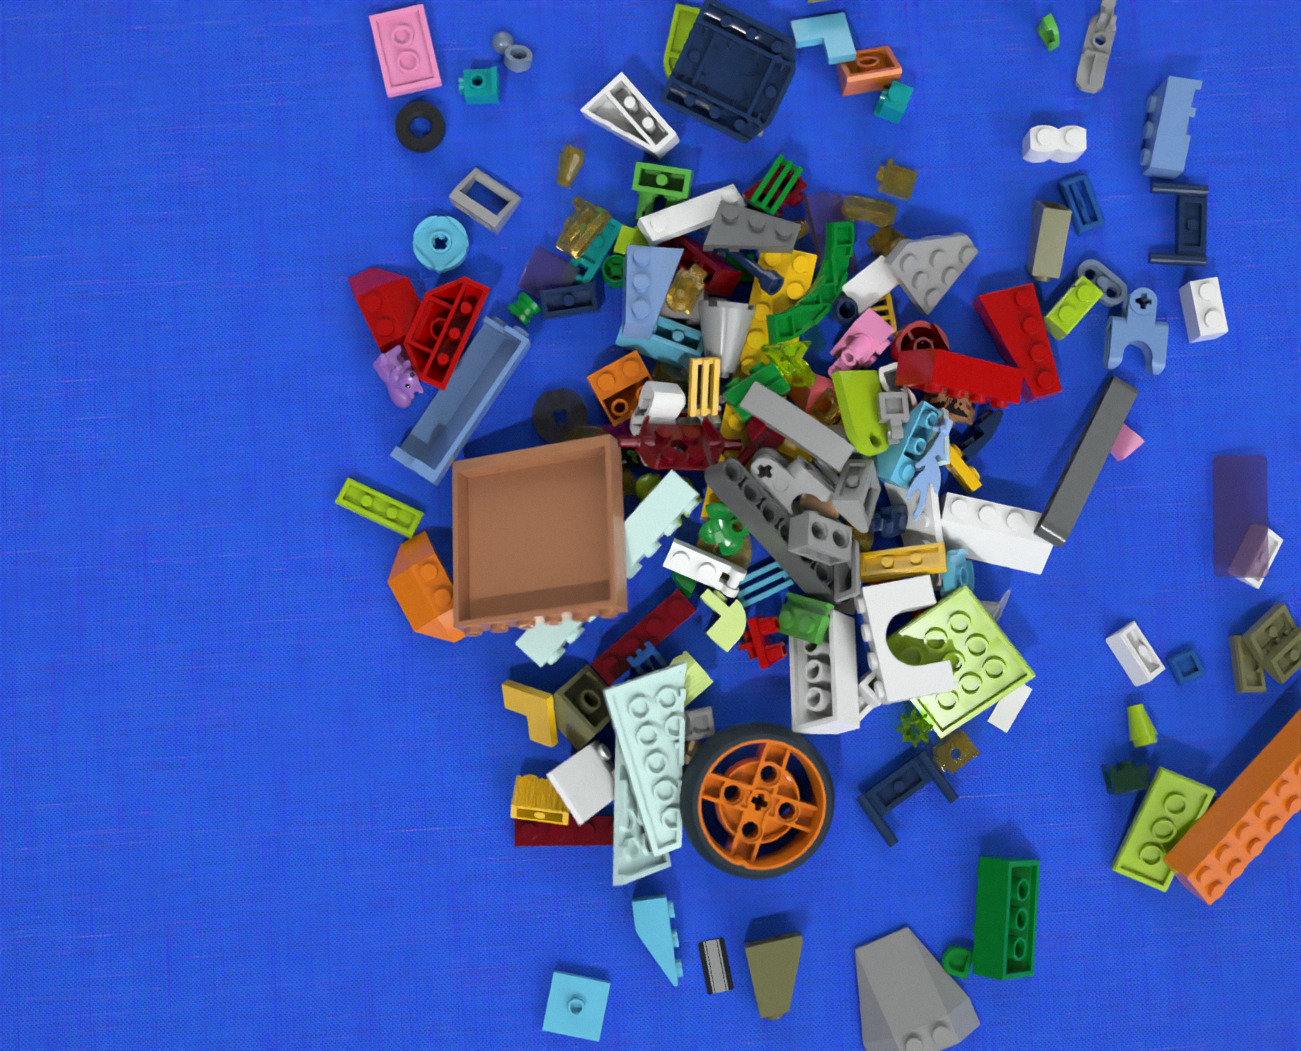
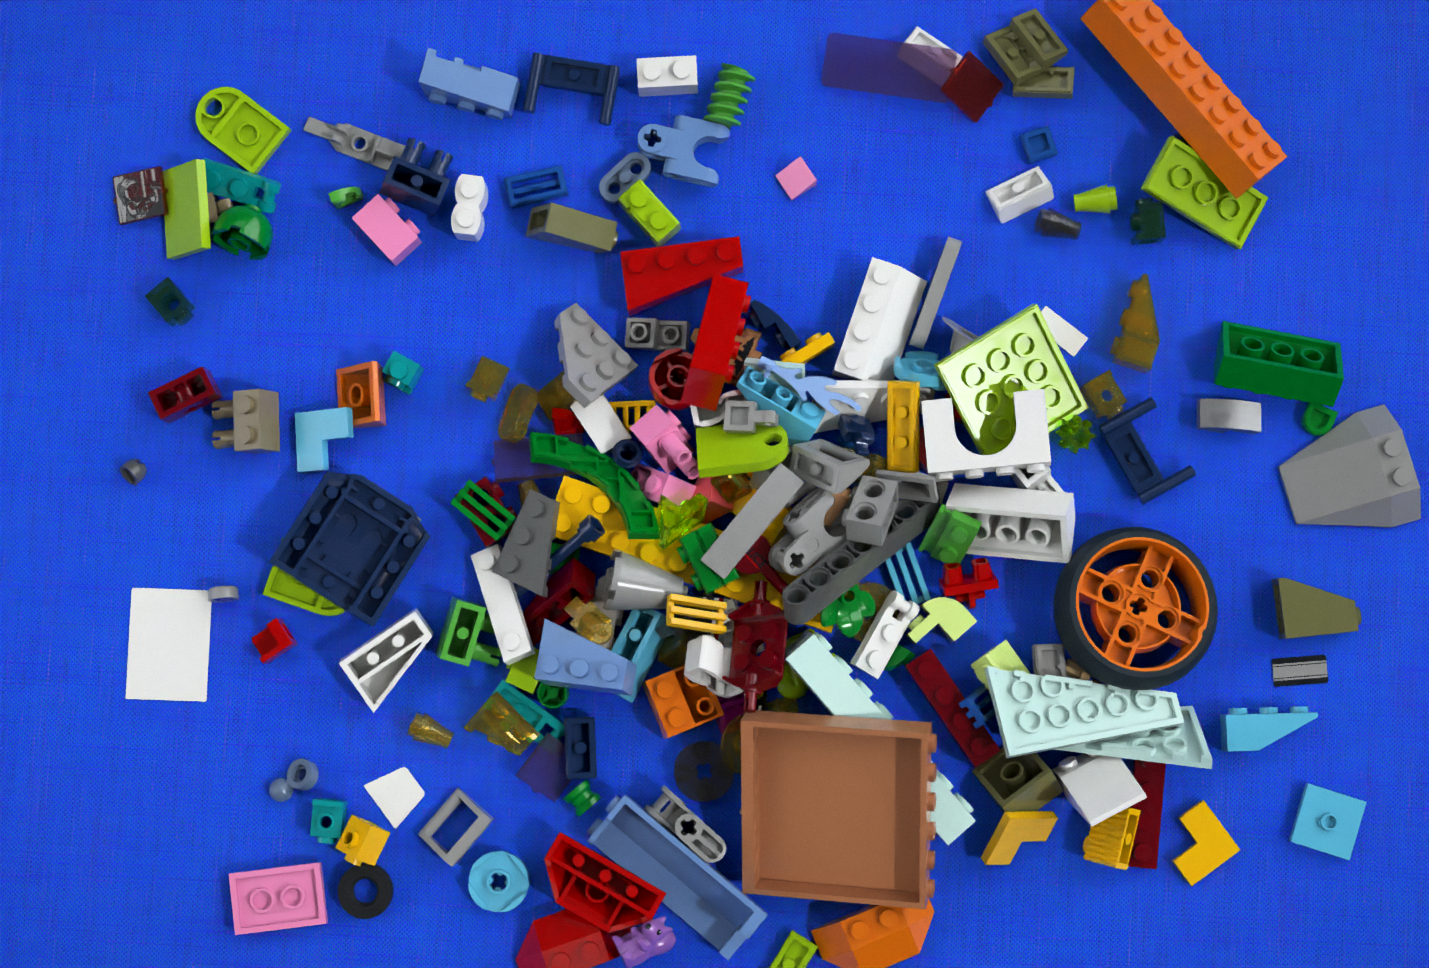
camera: 75 degrees left, 0 degrees up
(463, 116) = (362, 841): none -> yellow brick
(495, 420) = (700, 840): none -> light grey piece
(509, 145) = (396, 794): none -> white sticker
(541, 896) = (1211, 847): none -> yellow tile
(635, 19) = (273, 641): none -> red panel
(819, 349) = (658, 483): none -> bright pink slope
(866, 253) = (566, 422): none -> red tile
(951, 873) = (1229, 415): none -> flat silver slope
(958, 325) = (657, 334): none -> light grey slope
(1016, 780) = (1139, 334): none -> clear yellow slope
(1023, 72) = (387, 230): none -> bright pink brick
(1031, 582) = (935, 292): none -> light grey beam
(1069, 90) = (415, 185): none -> dark blue brick
(1086, 462) = (817, 221): dark grey beam -> none
(1111, 691) = (1054, 224): none -> clear smoke cone
(1193, 368) = (728, 95): none -> bright green piece
(1233, 596) = (971, 87): none -> clear red piece

